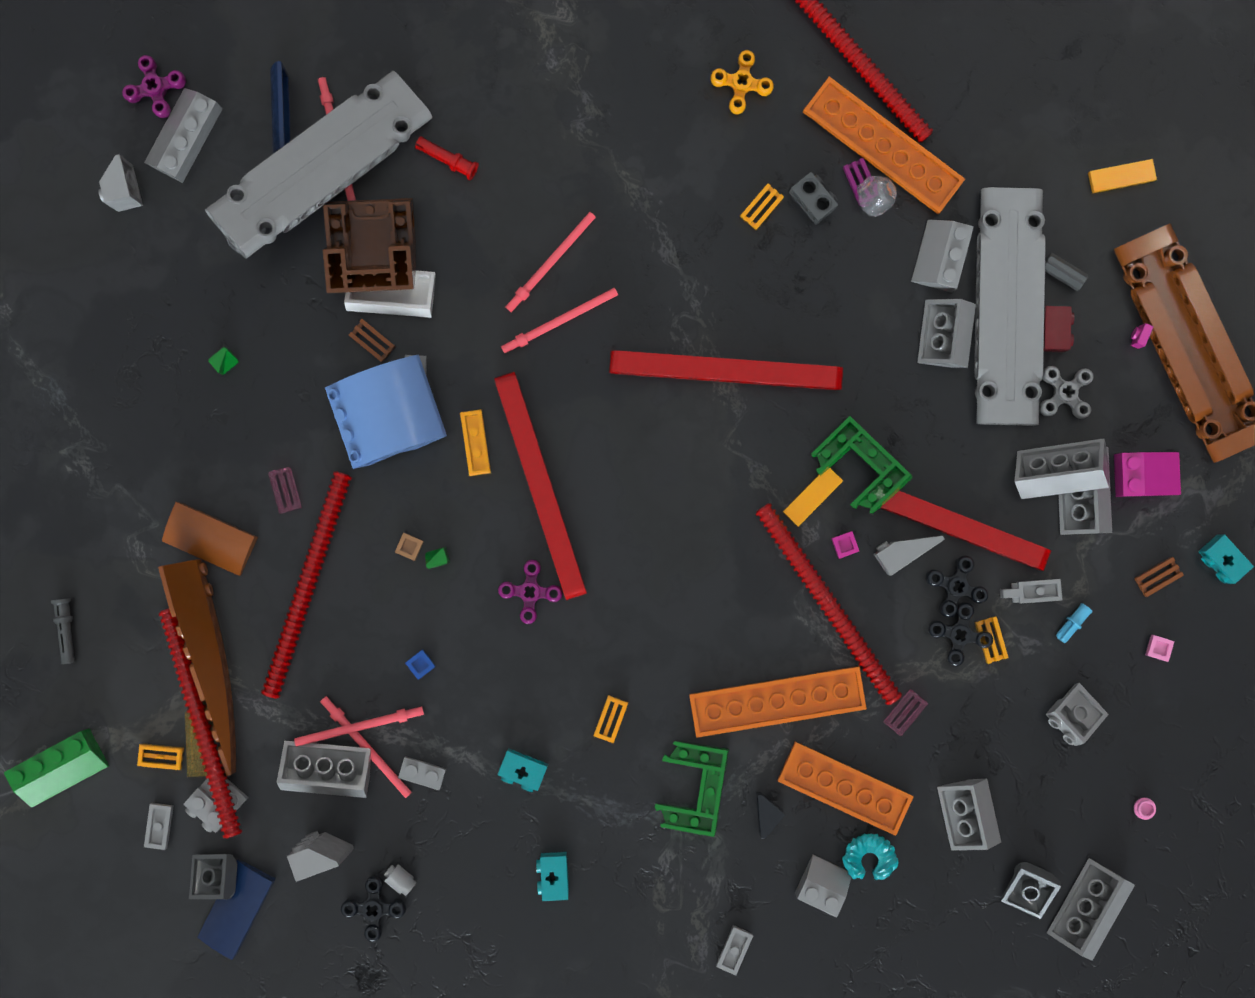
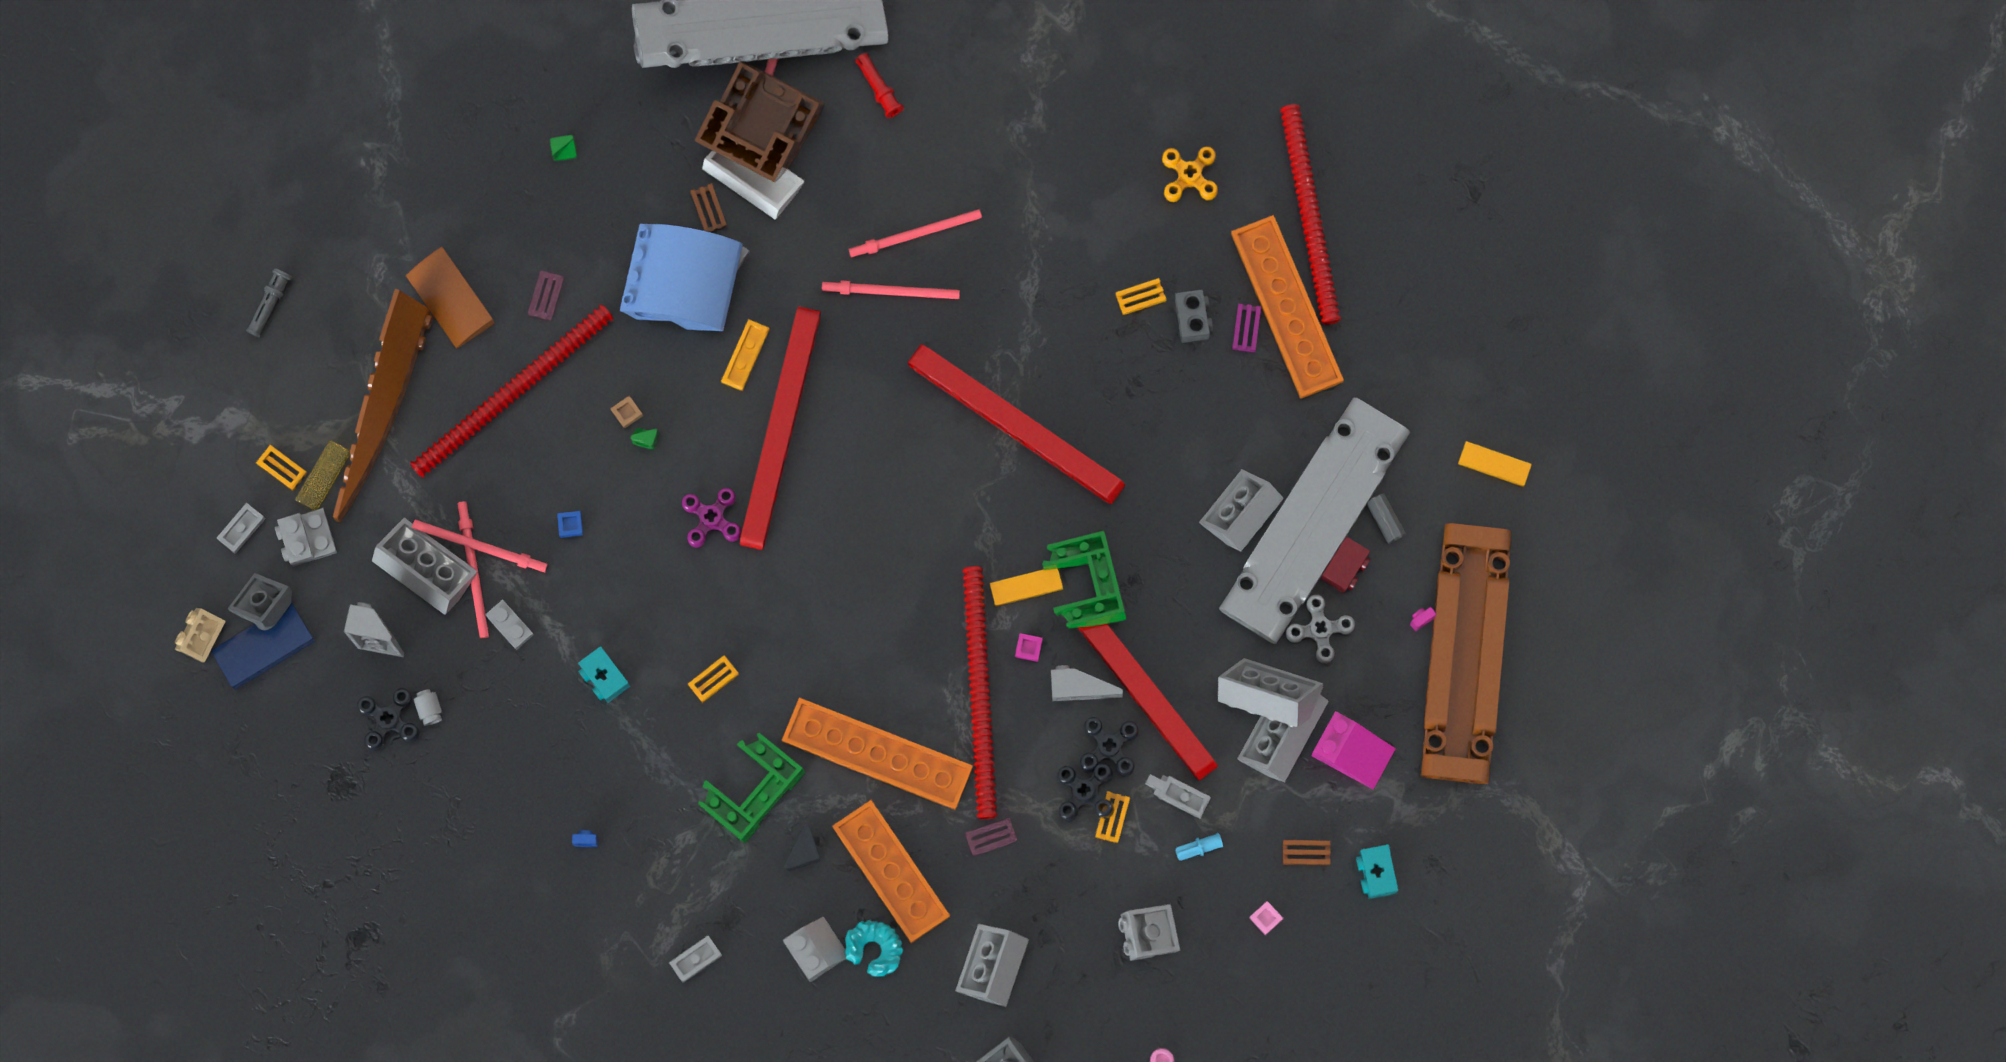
camera: 35 degrees right, 10 degrees down
(57, 768) = (183, 421): green slope -> none
(180, 931) = (199, 634): none -> tan bracket
(202, 730) = (338, 458): red piece -> none
(558, 864) = (571, 802): teal brick -> none
(589, 909) = (585, 839): none -> blue plate
(876, 195) = (1251, 347): clear hair -> none
(942, 254) = (1281, 436): light grey slope -> none

